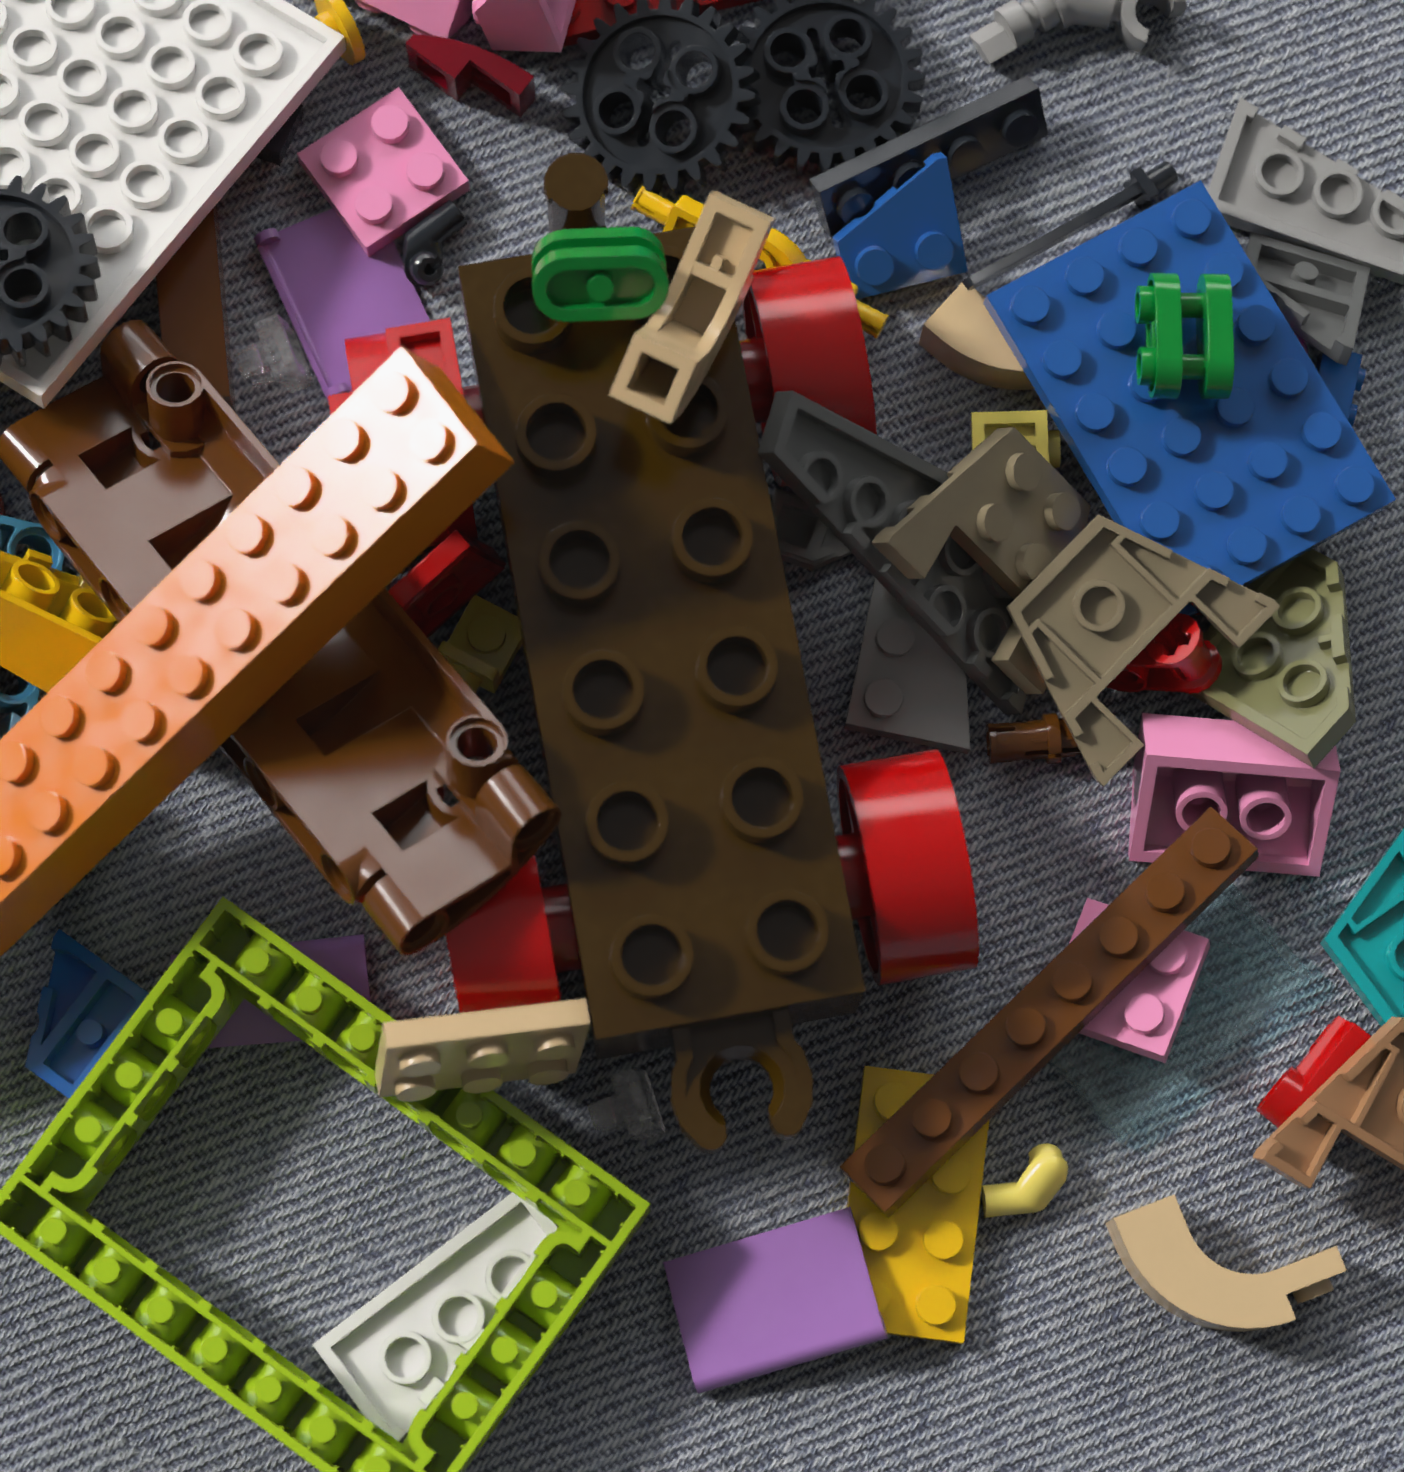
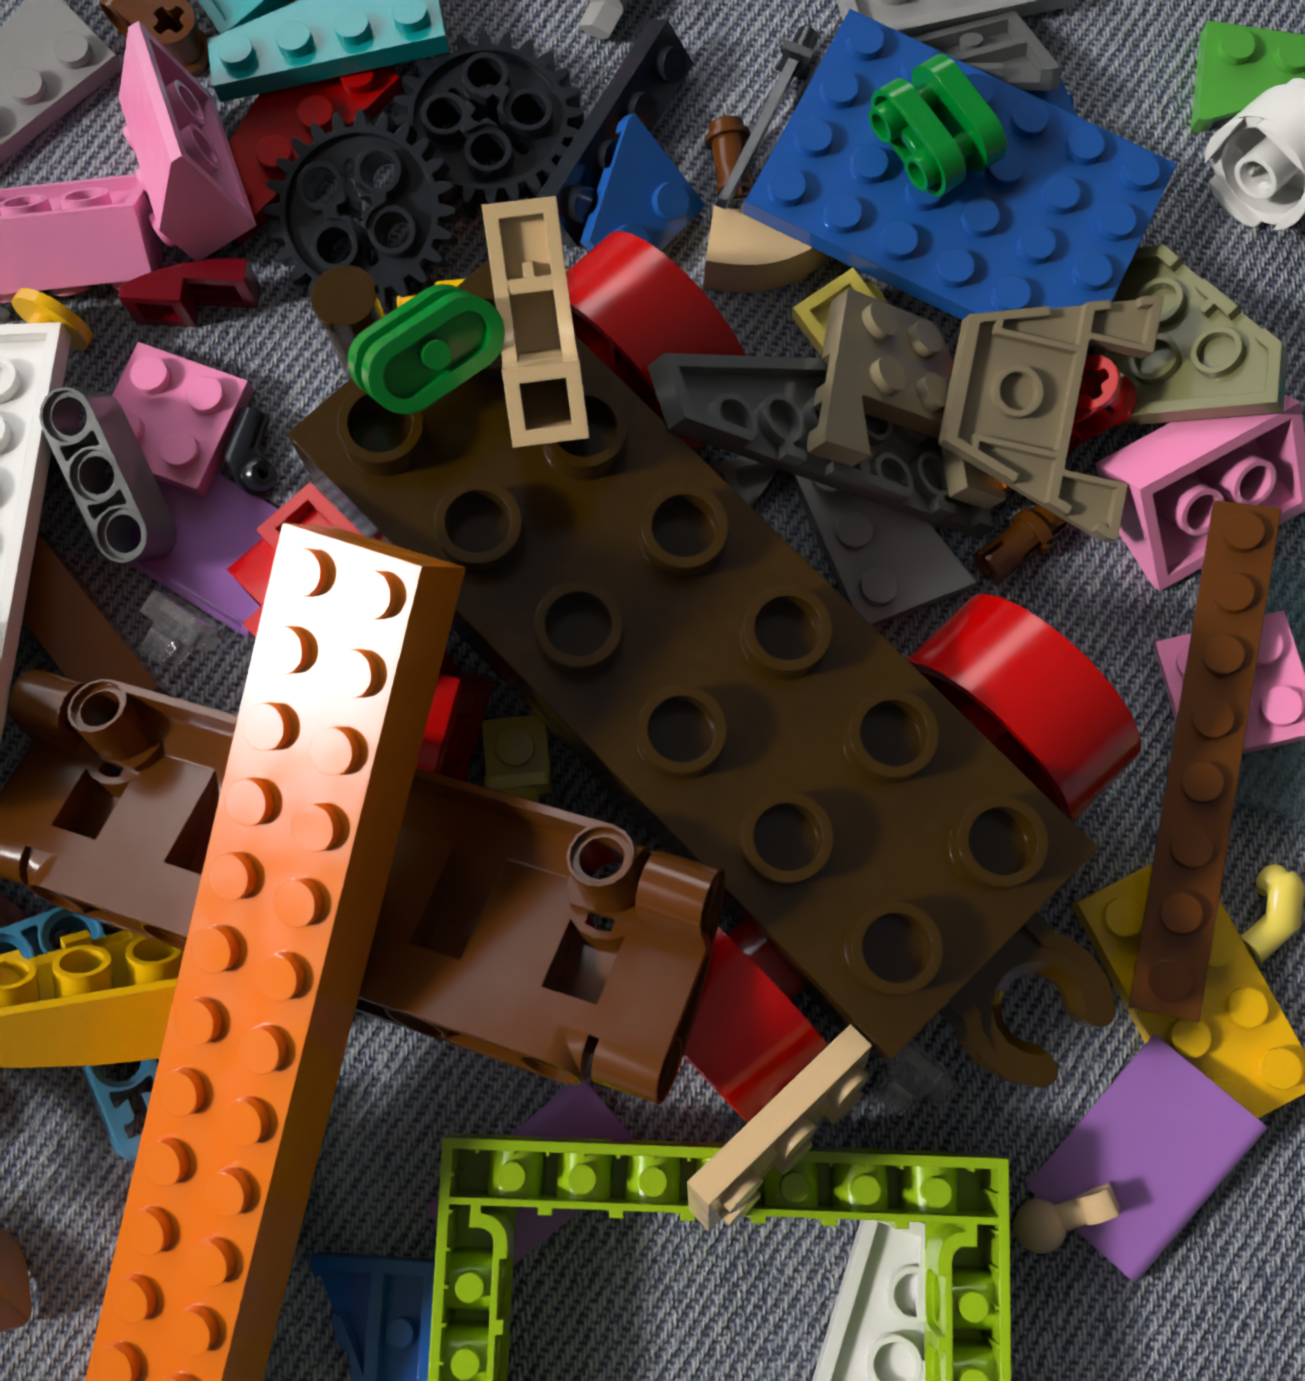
camera: 30 degrees left, 0 degrees up
(287, 167) = (84, 460): none -> dark grey beam
(652, 1296) = (1043, 1226): none -> tan arm
(1025, 225) = (726, 140): none -> reddish brown pin

